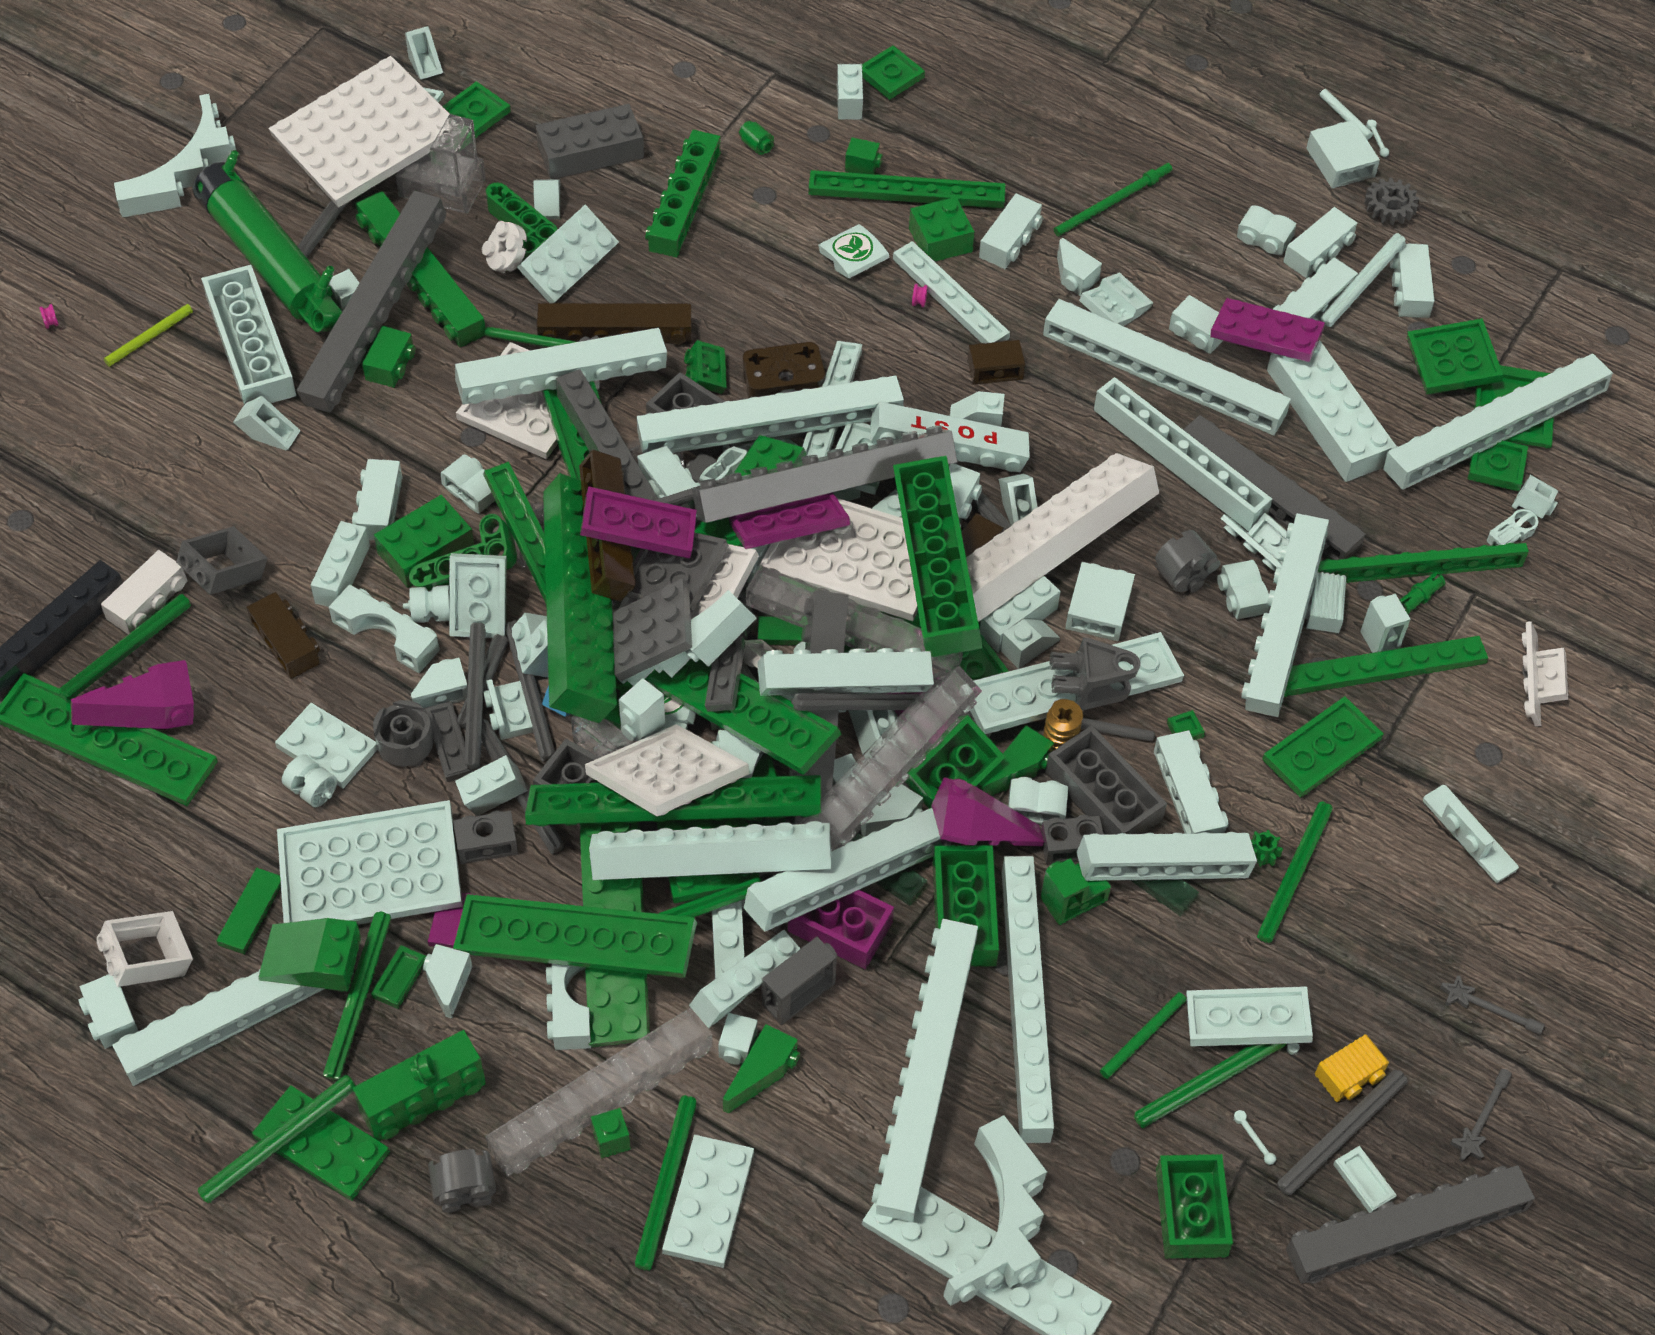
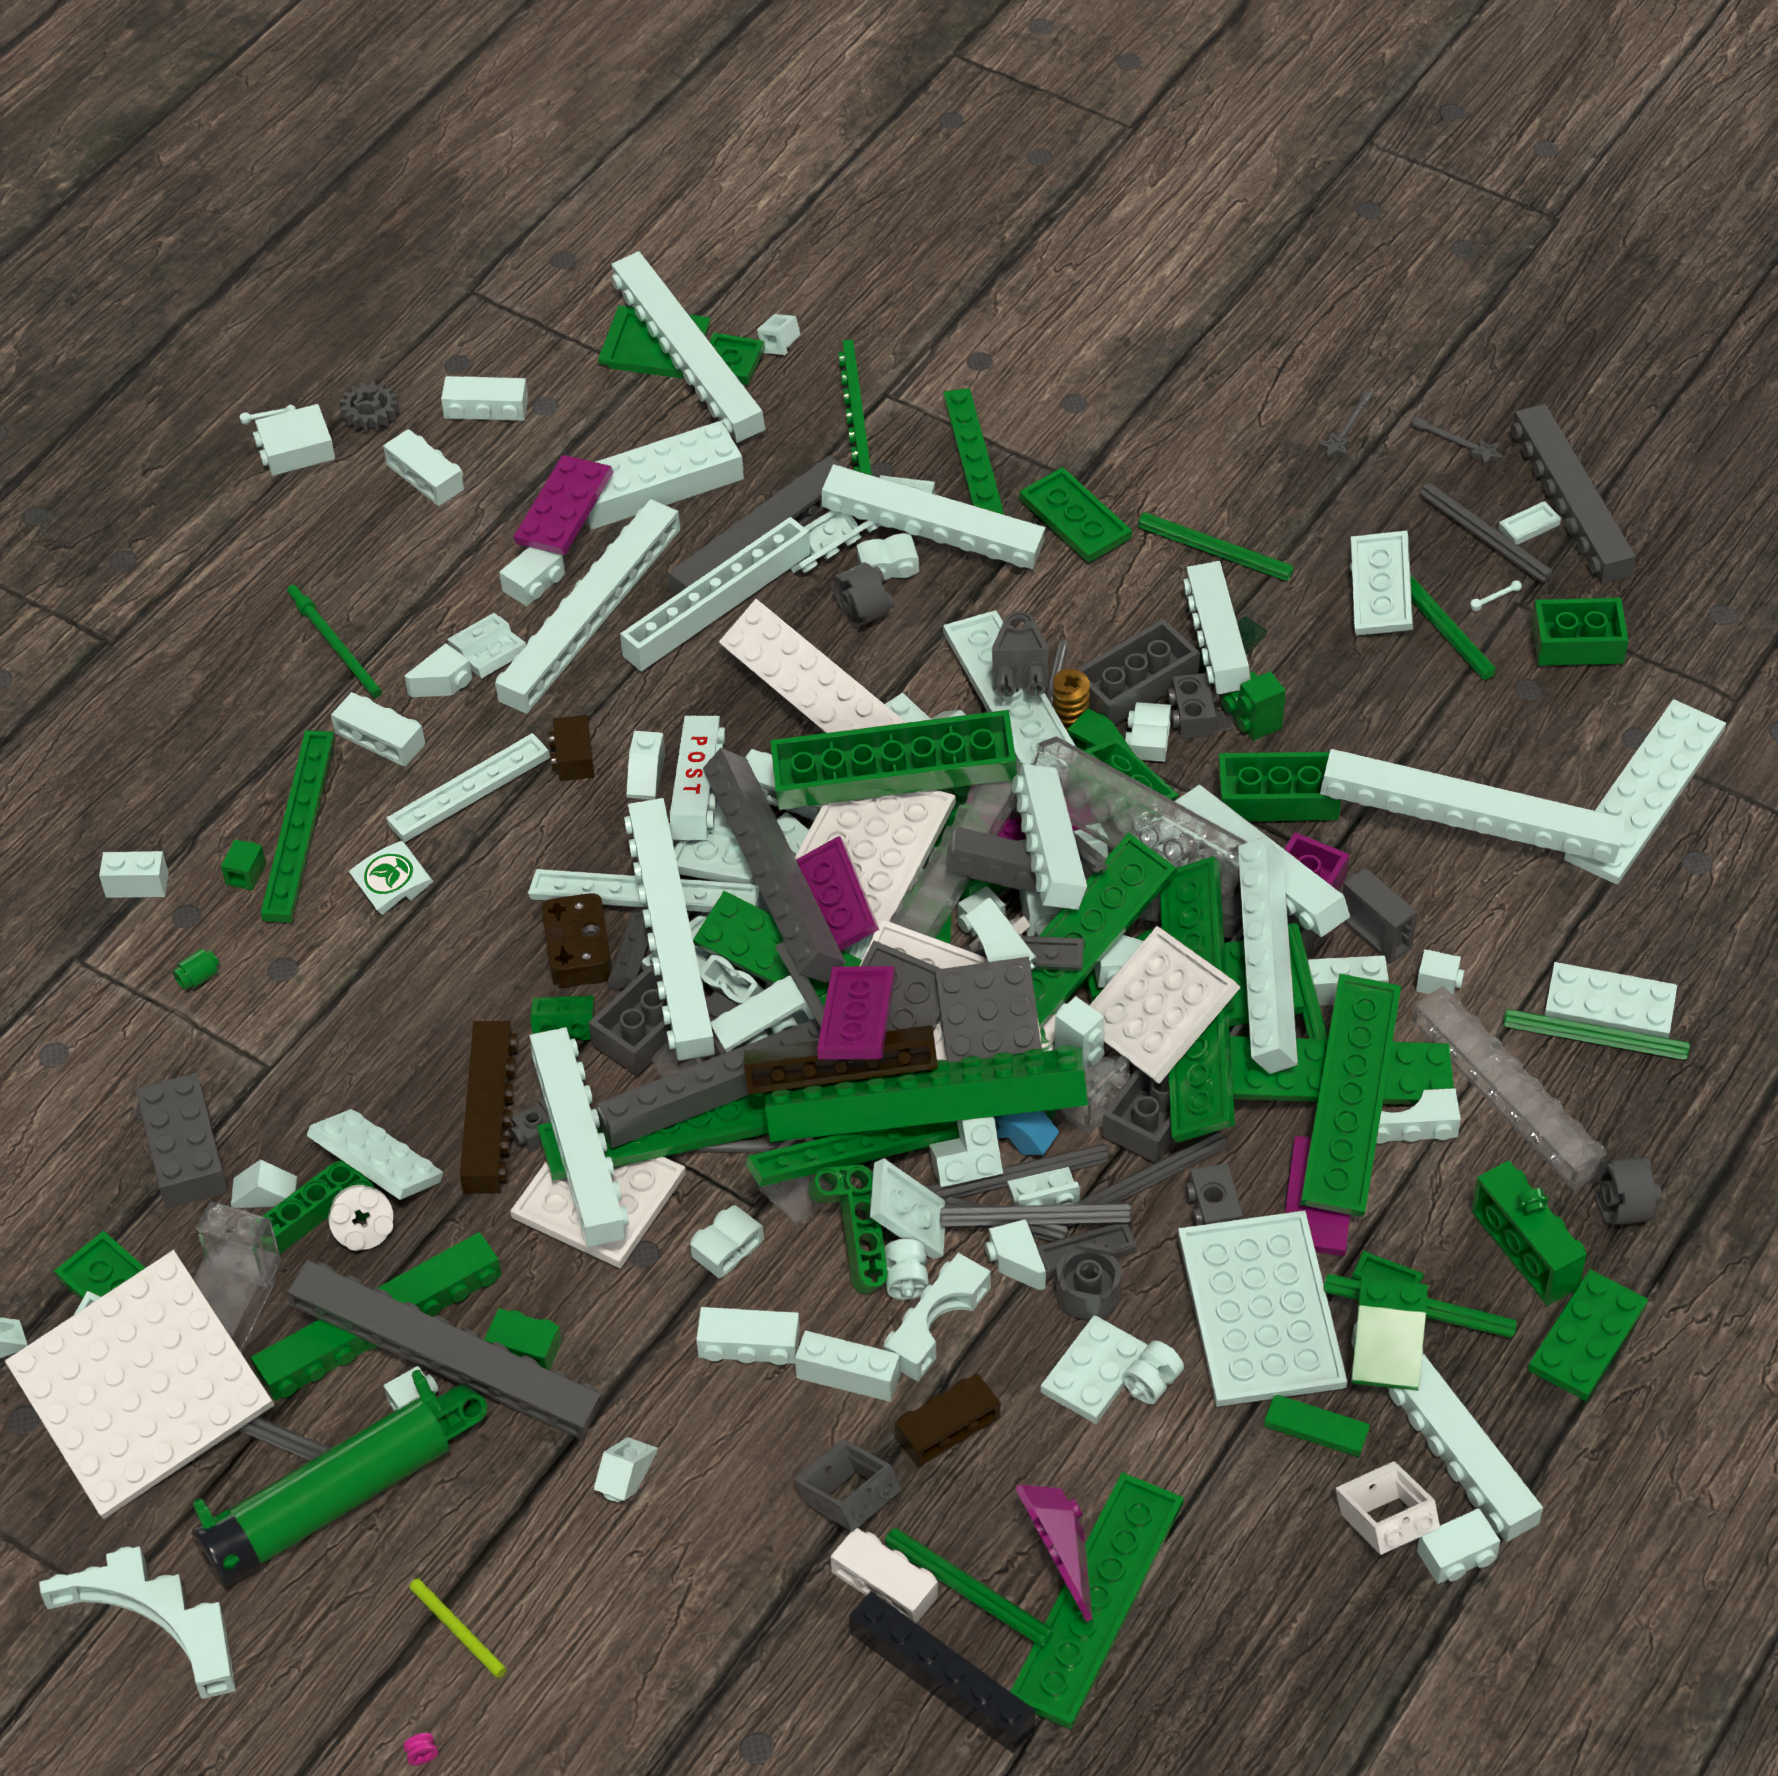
camera: 85 degrees left, 5 degrees down
(248, 335) = (484, 1494): light aqua brick -> none
(276, 1139) = (1600, 1360): green axle -> none
(422, 536) = (814, 1281): green brick -> none
(447, 975) = (1392, 1226): light aqua slope -> none
(491, 785) = (1157, 1190): light aqua brick -> none
(524, 337) = (509, 1185): green bar -> none
(610, 1133) = (1556, 1073): green brick -> none
(683, 193) = (280, 1040): green brick -> none
(739, 981) = (1406, 964): light aqua arch -> none
(763, 1066) = (1477, 957): green slope -> none
(892, 72) = (101, 832): green plate -> none
(919, 295) = (467, 814): dark pink bush -> none
(941, 229) = (371, 789): green brick -> none
(971, 815) = (1190, 764): magenta wedge -> none
(1017, 1179) = (1608, 753): light aqua arch -> none
(1018, 496) = (766, 725): light aqua slope -> none
(1027, 1000) = (1397, 743): light aqua brick -> none
(1100, 601) = (902, 668): light aqua brick -> none
(1142, 1036) = (1400, 667): green bar -> none
(1186, 722) = (1052, 618): green tile -> none
(1189, 784) = (1127, 613): light aqua brick -> none
(1266, 230) = (401, 510): light aqua brick -> none
(1266, 848) = (1193, 556): green gear -> none
(1319, 291) = (500, 474): light aqua brick -> none
(1344, 112) = (224, 438): light aqua bar -> none
(1352, 1068) = (1425, 518): yellow brick -> none
(1363, 279) = (486, 433): light aqua axle -> none
(1385, 624) = (941, 450): light aqua brick -> none
(1422, 592) = (890, 430): green pin -> none
(1454, 356) = (593, 374): green plate -> none
(1470, 833) = (1167, 418): light aqua bracket -> none
(1510, 531) = (814, 360): light aqua piece -> none
(1546, 674) = (990, 347): white bracket -> none

